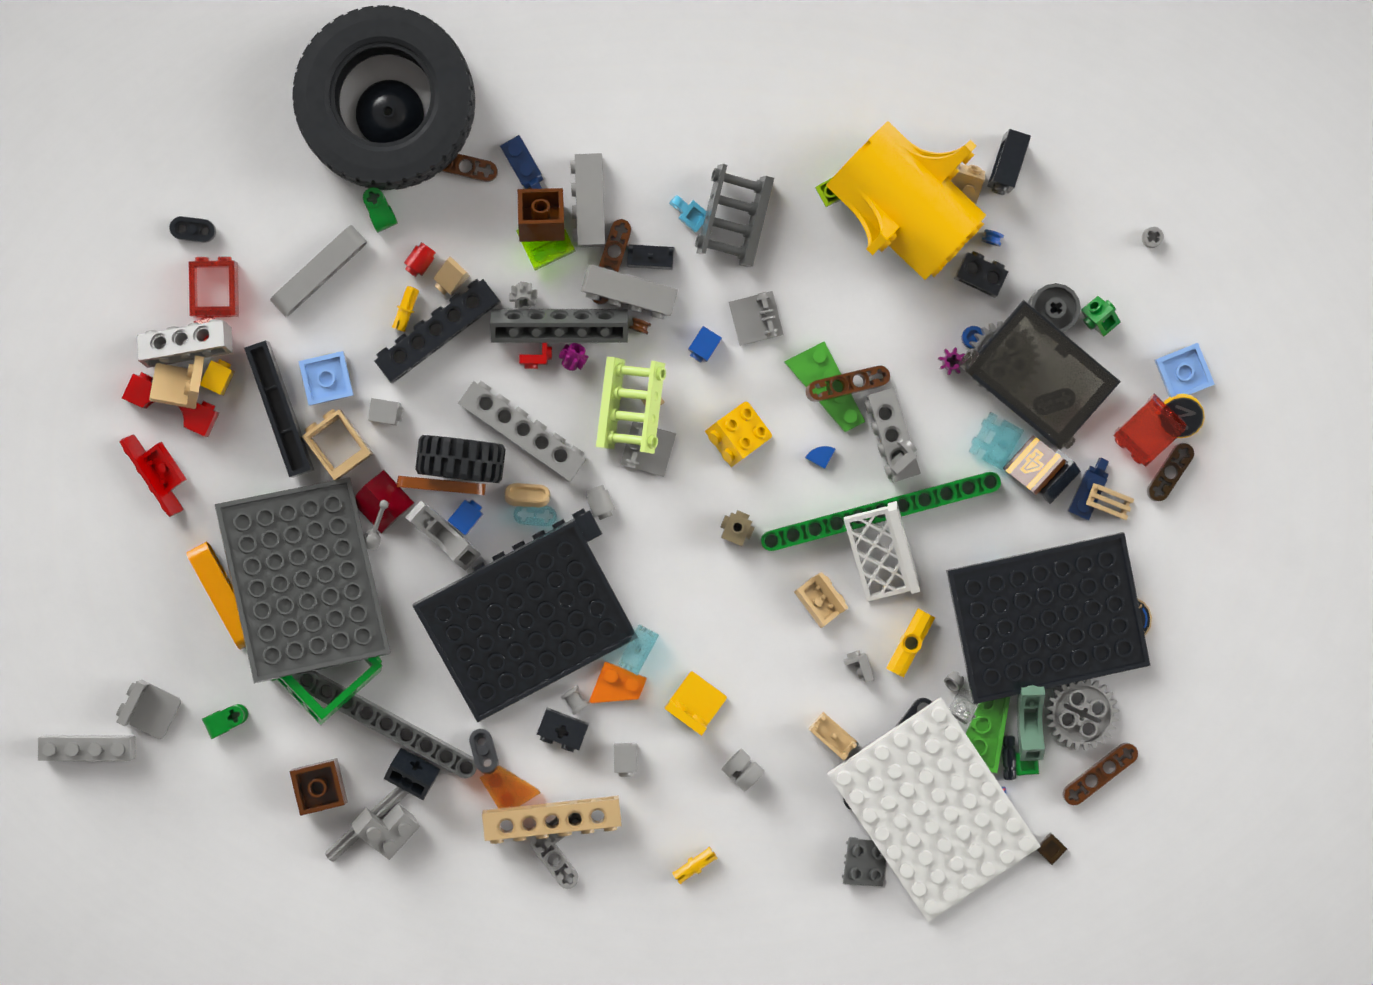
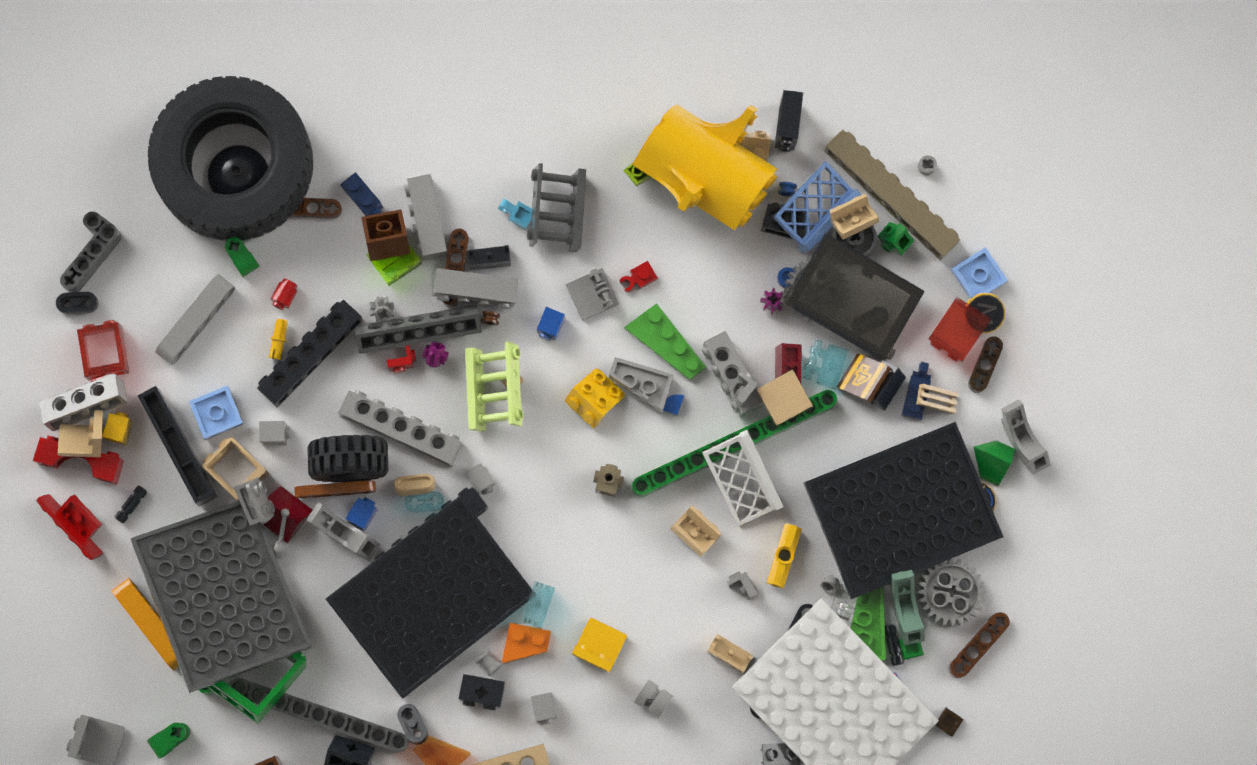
camera: 20 degrees left, 10 degrees down
(211, 177) = (87, 256): none -> dark grey beam
(220, 462) = (130, 504): none -> black axle
(353, 487) = (254, 501): none -> light grey bracket
(450, 277) = (314, 302): tan slope -> none
(648, 462) = (514, 435): light grey hinge -> none
(795, 427) = (642, 381): none -> light grey wing
(813, 306) = (641, 275): none -> red plate
(847, 382) = (685, 337): reddish brown beam -> none
(943, 473) = (784, 397): none -> tan tile
(955, 436) = (788, 358): none -> dark red hinge
(1028, 283) = (813, 235): none -> medium blue fence
(1058, 287) = (853, 216): none -> tan bracket
(1106, 264) = (892, 194): none -> dark tan brick
(1157, 579) = (993, 460): none -> green slope
(1194, 562) = (1022, 438): none -> light grey arch

